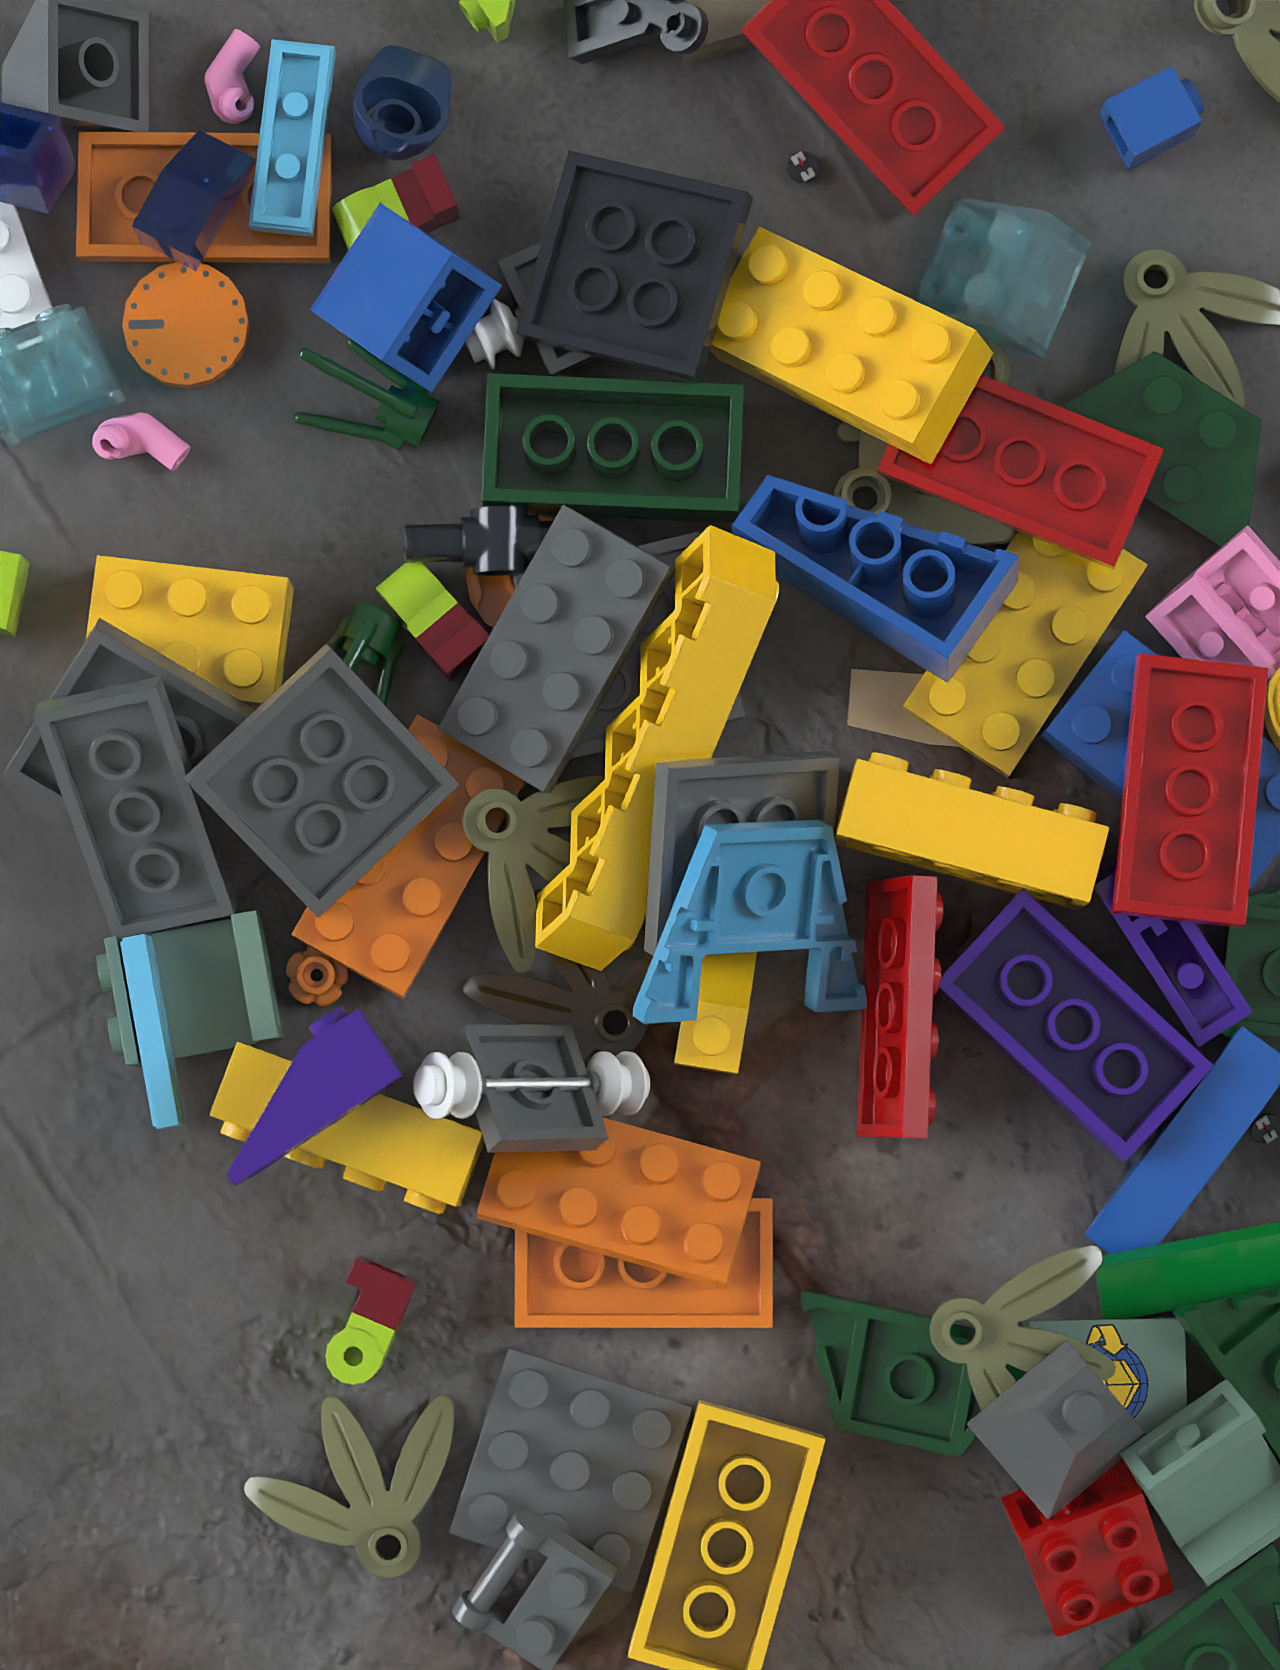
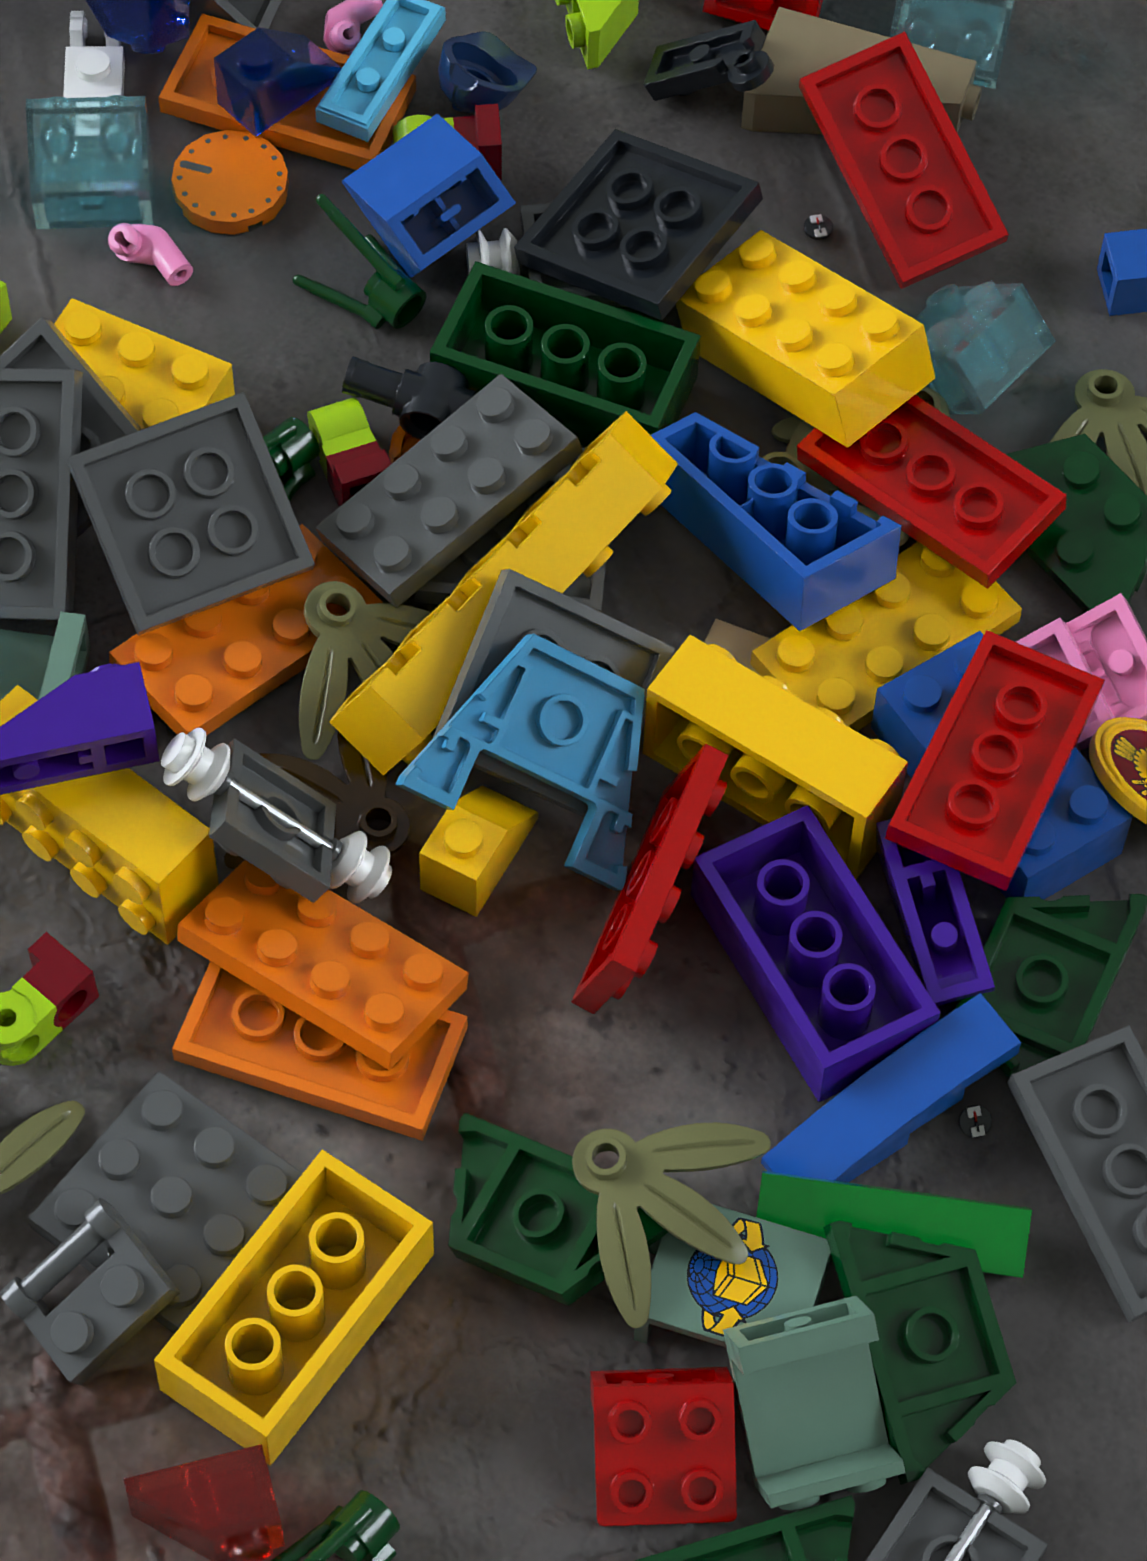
camera: 15 degrees right, 25 degrees down
(1056, 1429) = (670, 1286): dark grey slope -> none

